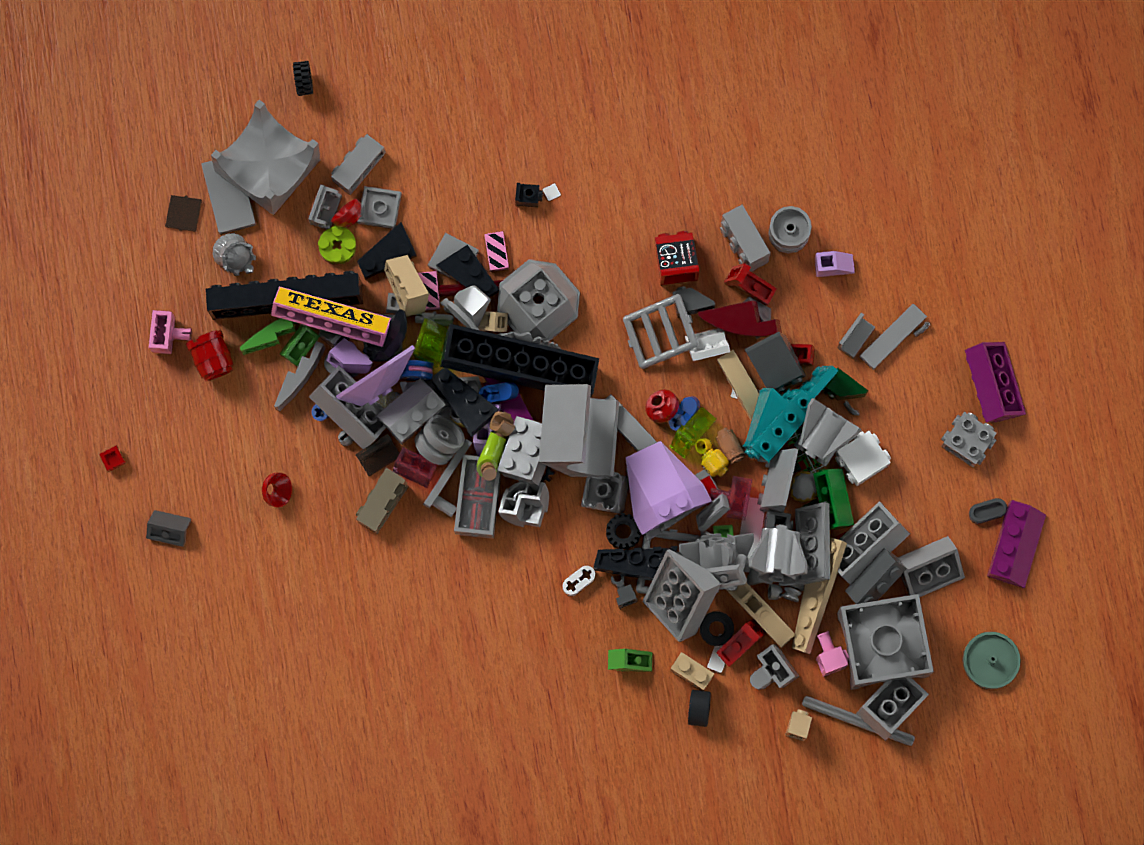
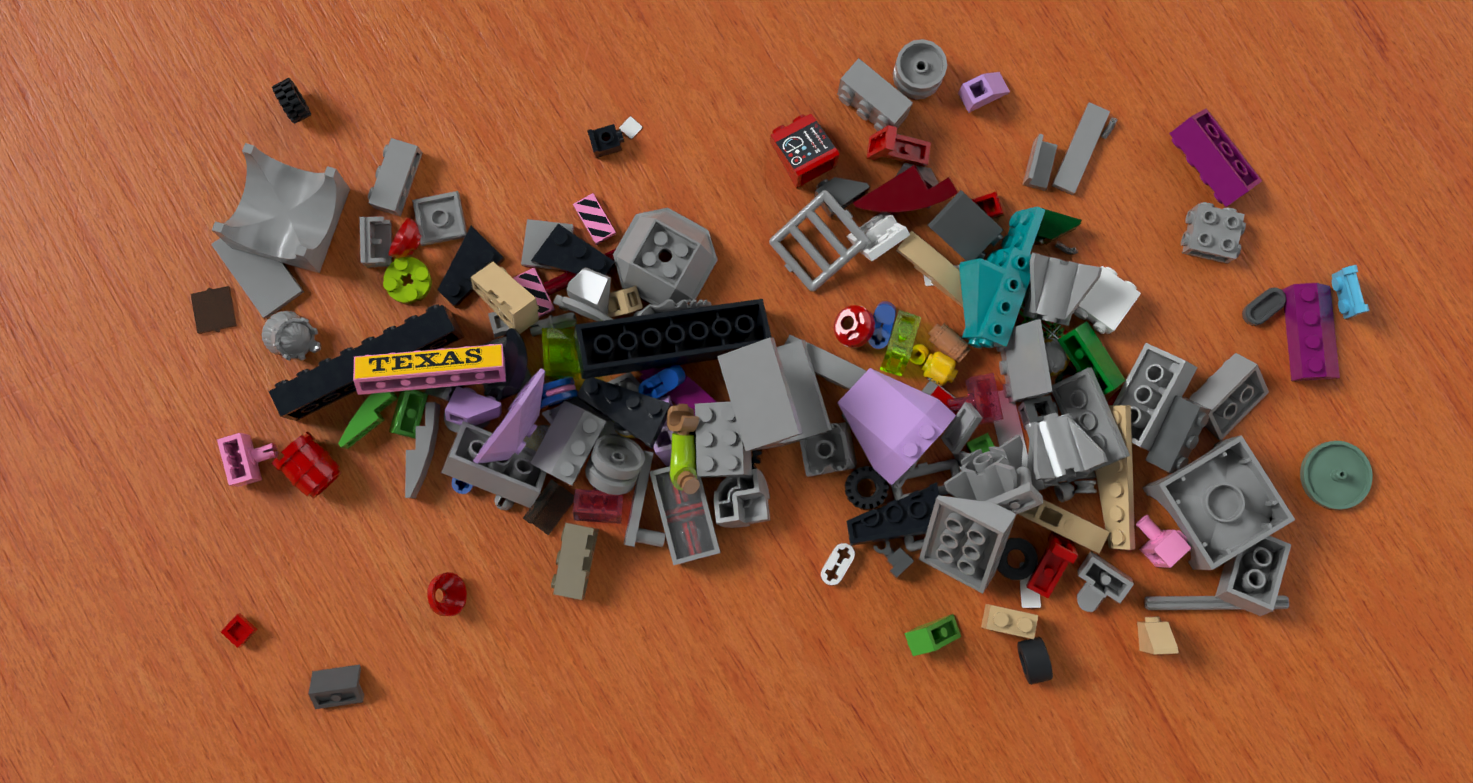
camera: 25 degrees left, 5 degrees up
(1054, 515) = (1349, 292): none -> medium azure plate

